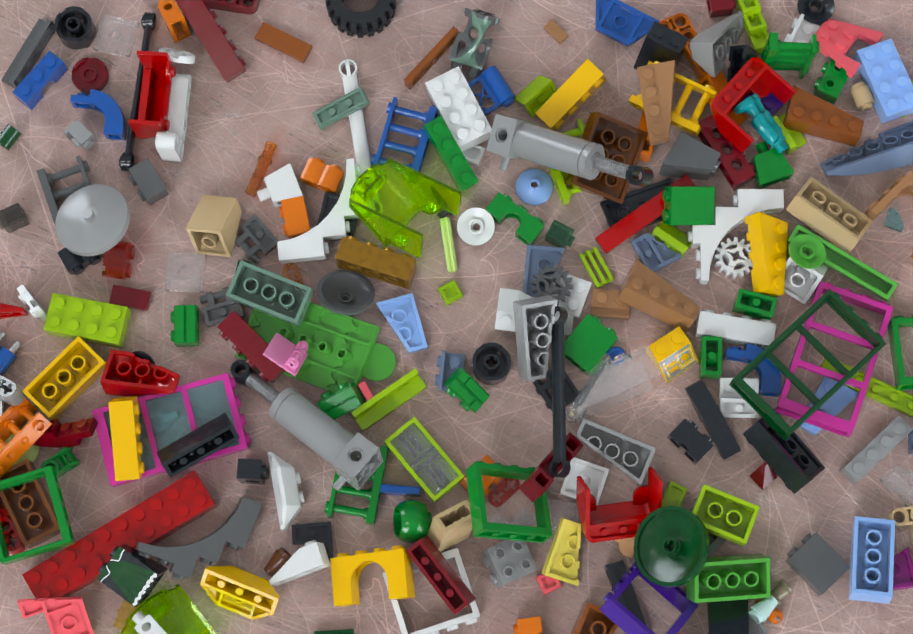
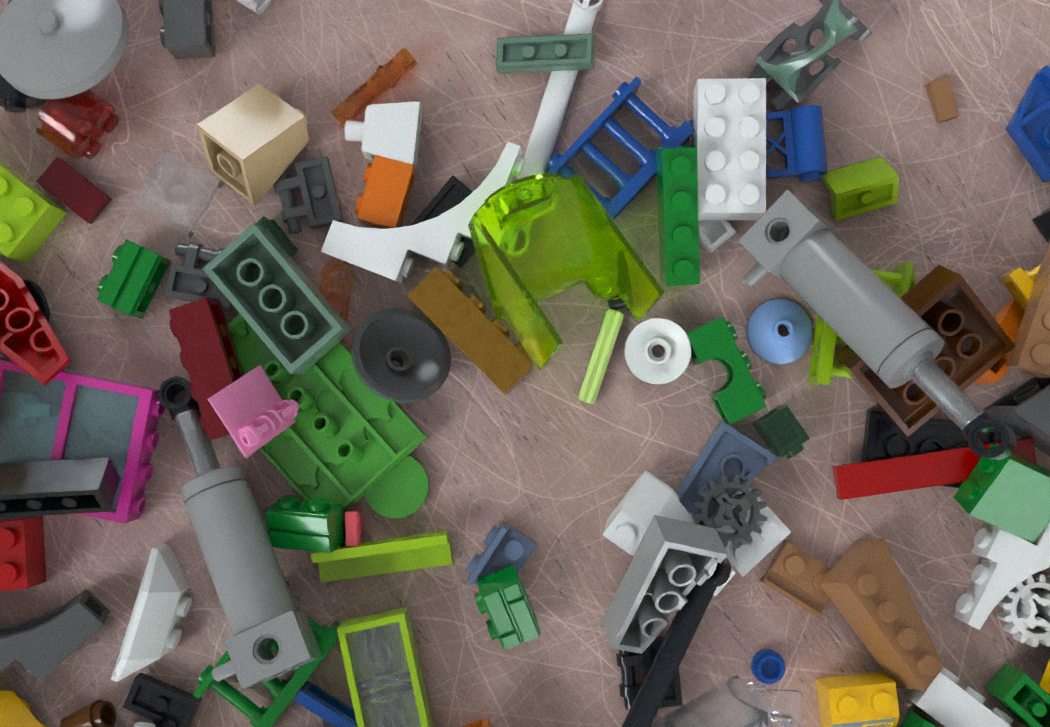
camera: 20 degrees right, 10 degrees up
(252, 471) = (111, 566): black brick -> none
(322, 176) = (461, 147): orange brick -> none
(405, 321) = (472, 444): light blue wing -> none
(431, 58) = (727, 43): dark orange tile -> none
(450, 293) = (564, 433): lime tile -> none
(499, 356) = (575, 602): black brick -> none
(571, 95) = (919, 215): yellow wedge -> none
(589, 253) = (822, 505): lime tile -> none
(589, 343) = (739, 629): green brick -> none
(653, 253) = (911, 534): sand blue wing -> none
(672, 238) = (950, 526): lime panel -> none

